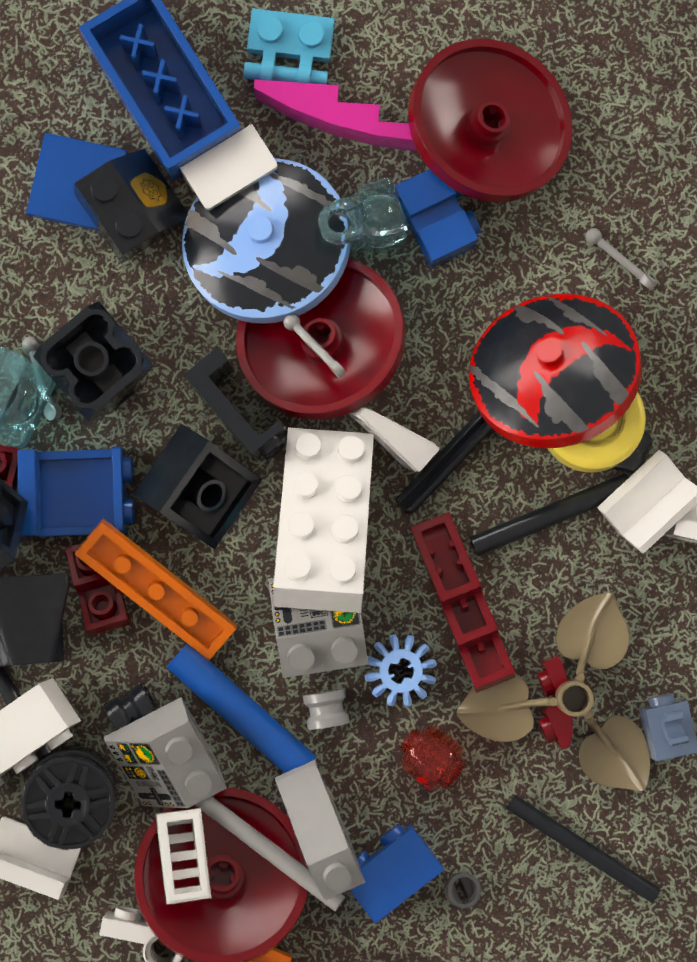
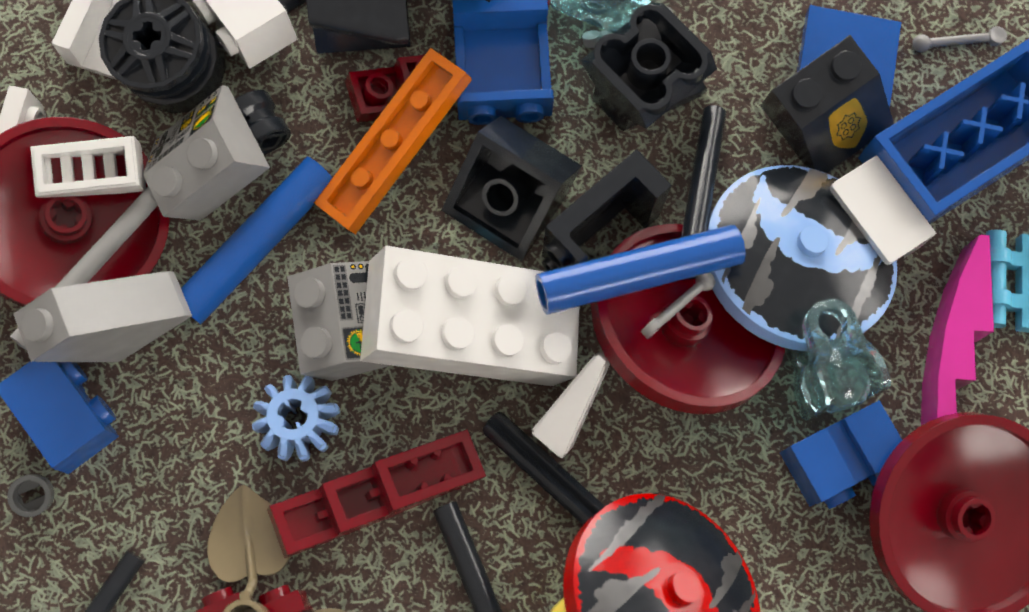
camera: 90 degrees right, 10 degrees down
(57, 50) = (994, 37): none -> light grey hinge
(206, 320) = (704, 171): none -> black piece
(289, 376) = (640, 269): none -> blue piece
(326, 709) = (252, 332): light grey wheel -> none
(432, 758) = (190, 457): clear red head -> none

